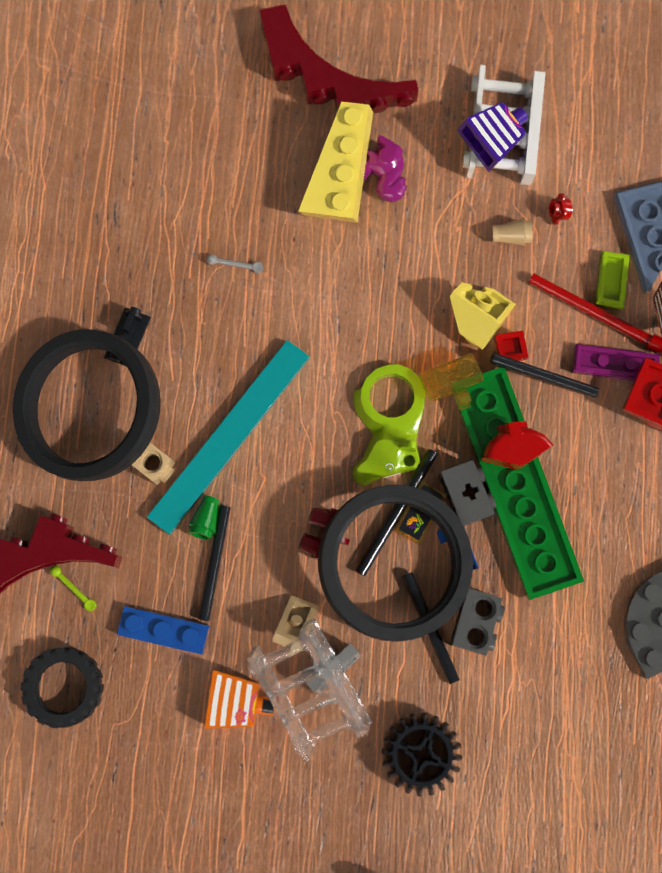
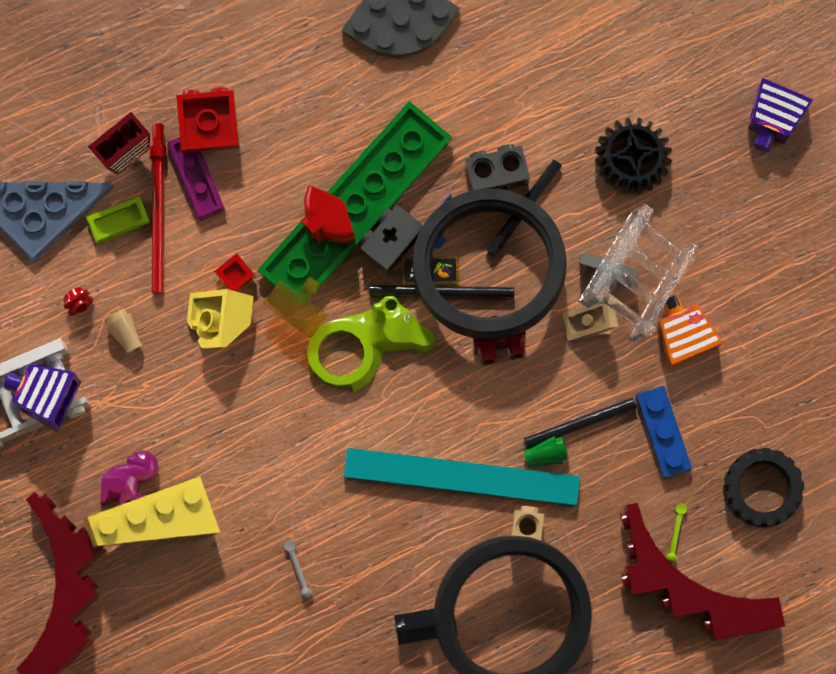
camera: 120 degrees left, 0 degrees up
(544, 375) = (245, 231): black bar -> none

